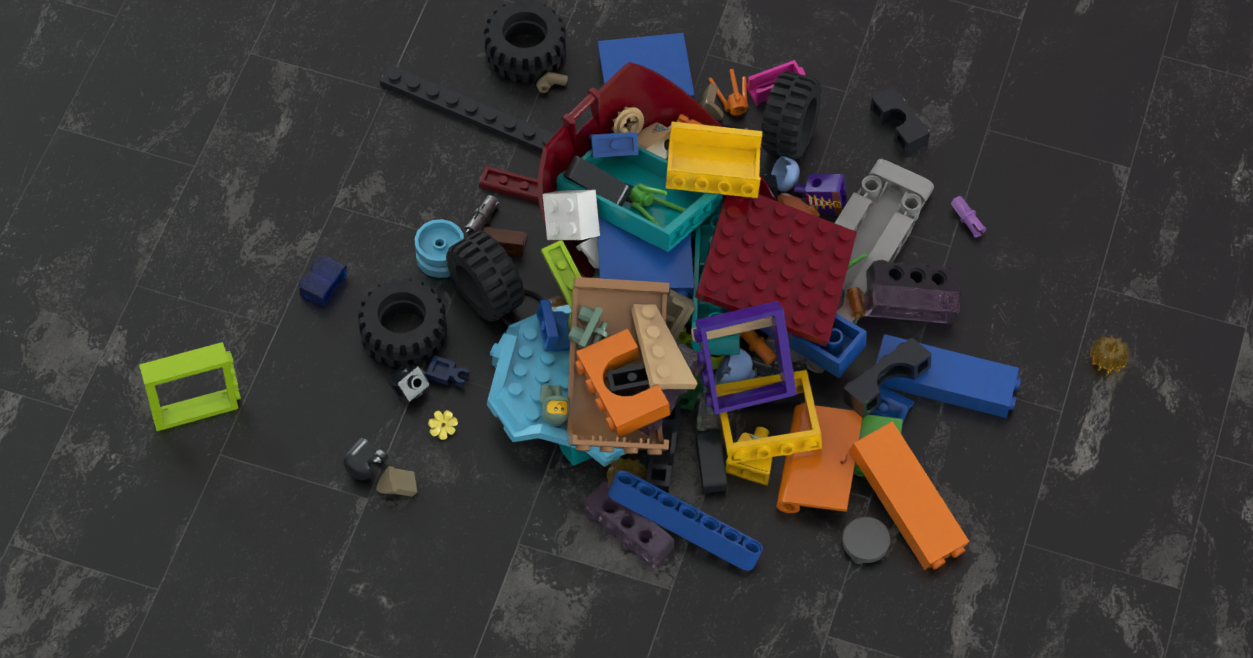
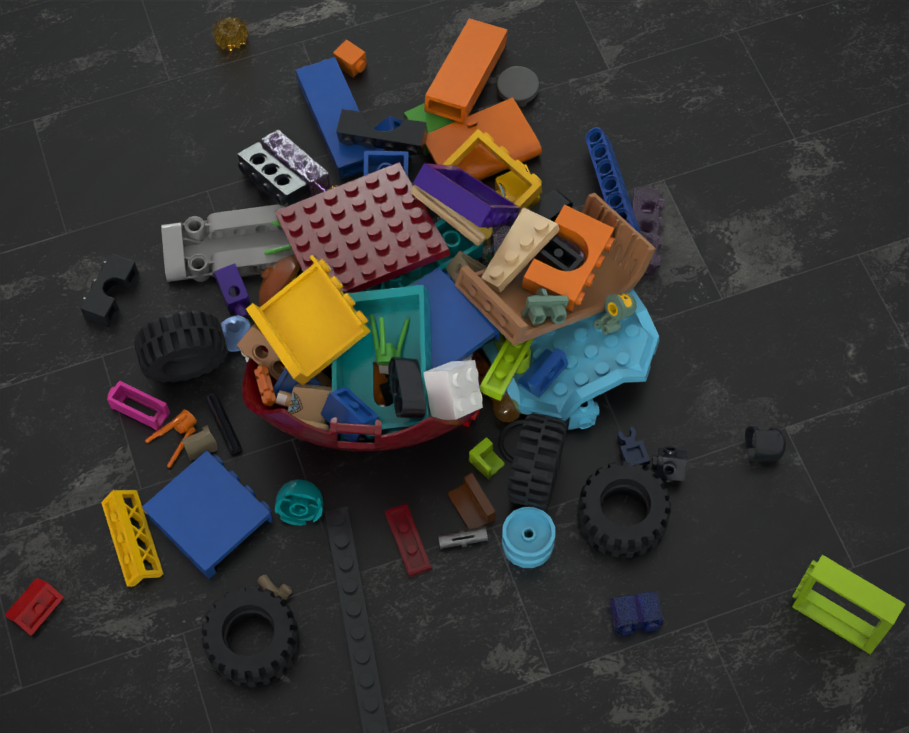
camera: 125 degrees left, 5 degrees up
(397, 482) = (759, 408): dark tan tile -> none
(442, 424) = (680, 416): light yellow plant -> none
(530, 269) = (485, 459): none -> lime panel
(666, 15) = (125, 536): none -> yellow fence
(968, 216) = (171, 189): medium lavender axle -> none
(1004, 426) = (350, 58): none -> orange brick

